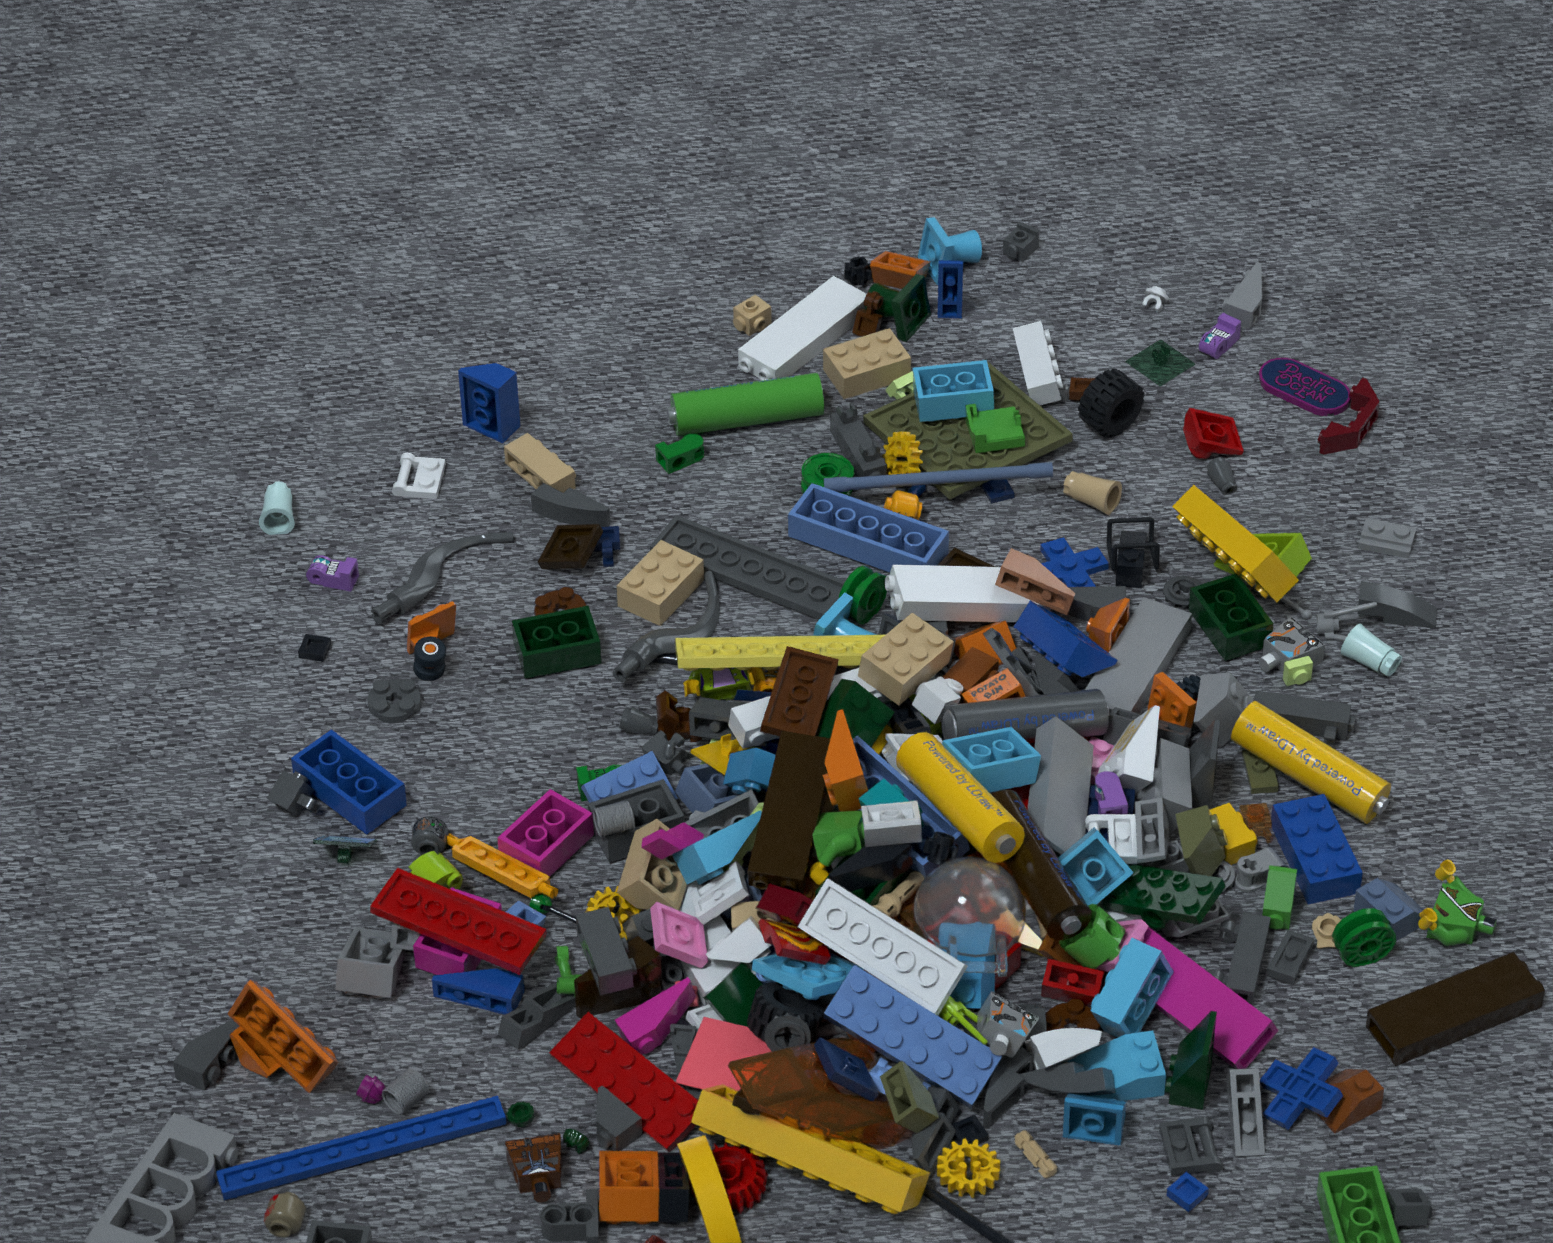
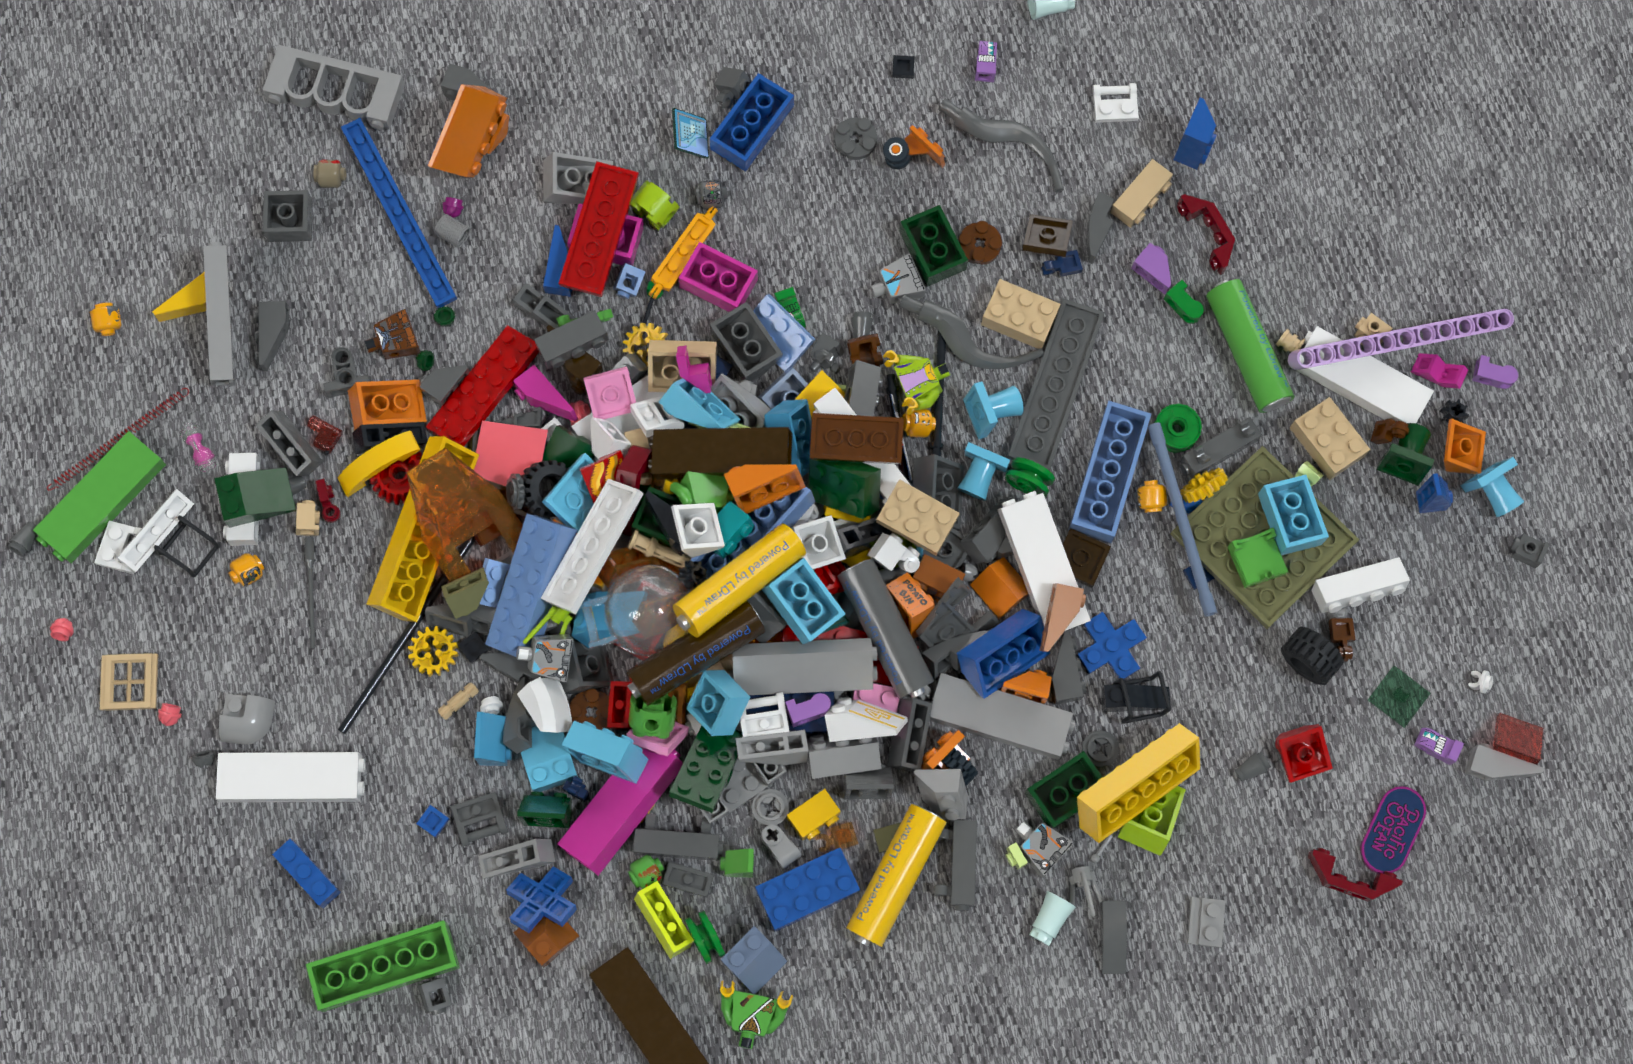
camera: 75 degrees right, 30 degrees up
(590, 680) = (898, 280): none -> light grey torso
(613, 818) = (722, 322): light grey piece -> none
(633, 469) = (1154, 267): none -> medium lavender slope
(635, 416) = (1193, 207): none -> dark red slope
(749, 374) = (1290, 341): none -> tan bush
(767, 652) = (931, 420): light yellow plate -> none
(770, 614) = (986, 409): none -> medium azure plant
(772, 287) = (1392, 341): none -> lavender beam
(811, 276) = (1435, 370): none -> dark pink slope
(821, 239) = (1494, 374): none -> medium lavender leg
(846, 1069) = (477, 539): dark blue plate -> none
(1049, 1118) = (491, 705): none -> white plate
(1094, 491) = (1206, 655): tan plant -> none
(1168, 1040) = (576, 788): none -> dark blue plate
(1201, 840) = (774, 789): olive slope -> none
(1221, 278) = (1518, 738): none -> clear red tile
(1277, 990) = (645, 871): none -> bright green head
(1323, 928) = (723, 908): tan animal -> none
(1338, 976) = (663, 920): none -> neon yellow brick

